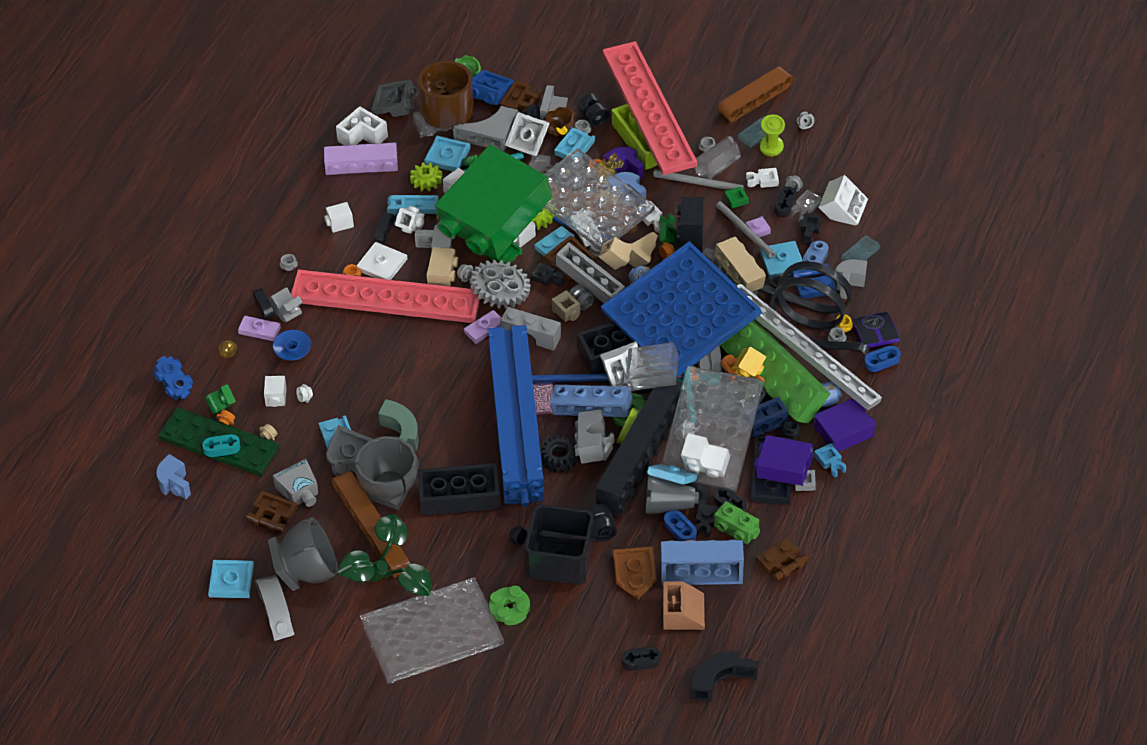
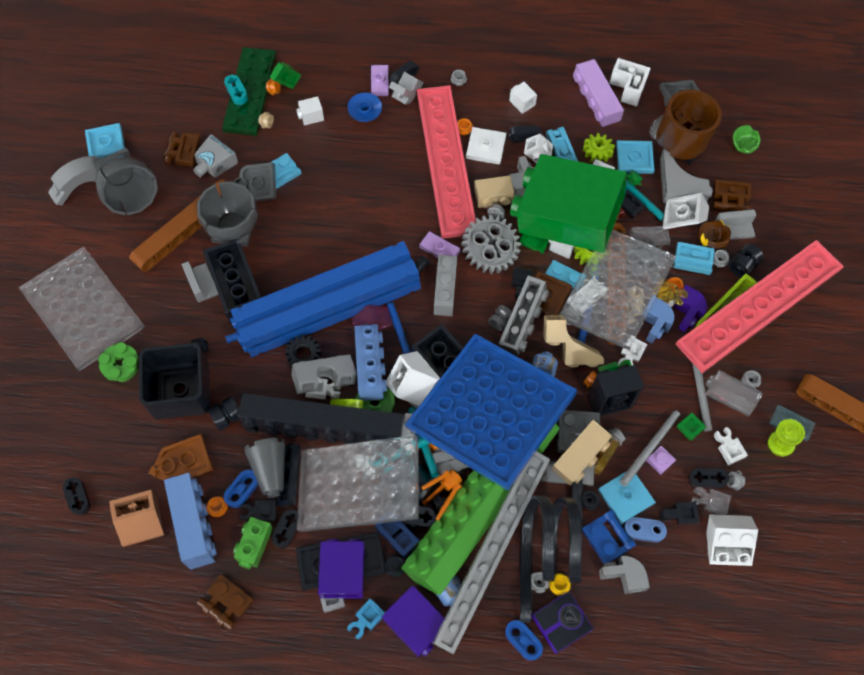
camera: 70 degrees right, 15 degrees up
(169, 372) = (298, 36): blue brick -> none
(170, 477) = (199, 66): medium blue brick -> none
(227, 348) = (348, 64): clear yellow plate -> none
(304, 393) = (316, 133): white plate -> none
(360, 569) = (104, 223): dark green plant -> none
(401, 420) = (296, 221): sand green arch -> none
(443, 525) = (200, 281): none -> light grey panel
(490, 87) = (732, 164): blue plate -> none
(533, 111) = (716, 208): black plate -> none
(568, 309) = (483, 303): dark tan brick -> none
(651, 366) = (403, 401): clear brick -> none
(672, 473) = (287, 461): medium azure plate -> none
(705, 458) = (314, 484): white brick -> none
(717, 668) = (77, 580): black arch -> none
(749, 363) = (437, 496): yellow brick -> none
(808, 124) = (826, 470): light grey plate -> none
(862, 249) = (668, 577): clear light blue plate -> none

